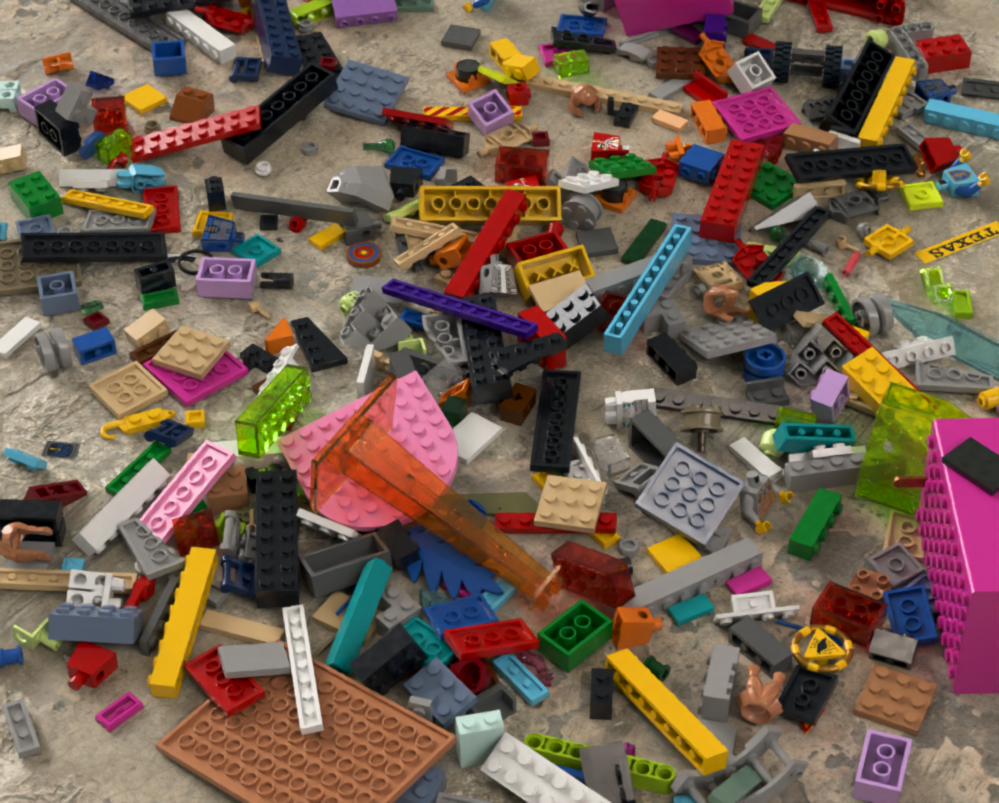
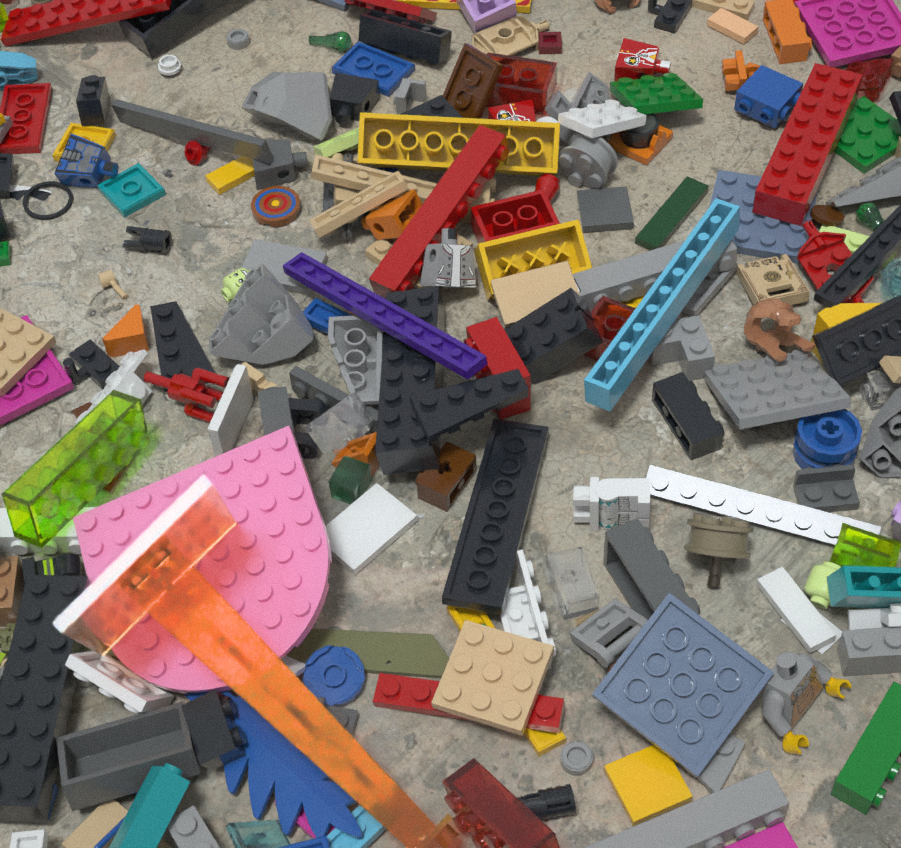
camera: 10 degrees right, 10 degrees up
(226, 277) = (76, 232): lavender brick -> none
(269, 222) = (159, 147): black tile -> none
(335, 368) = (192, 390): none -> red plant
(411, 343) = (311, 361): yellowish green bracket -> none
(492, 163) = (472, 82): none -> reddish brown tile
(666, 173) = (717, 105): red plate -> none
(699, 290) = (744, 301): light grey plate -> none
(749, 236) = (827, 215): none -> reddish brown piece

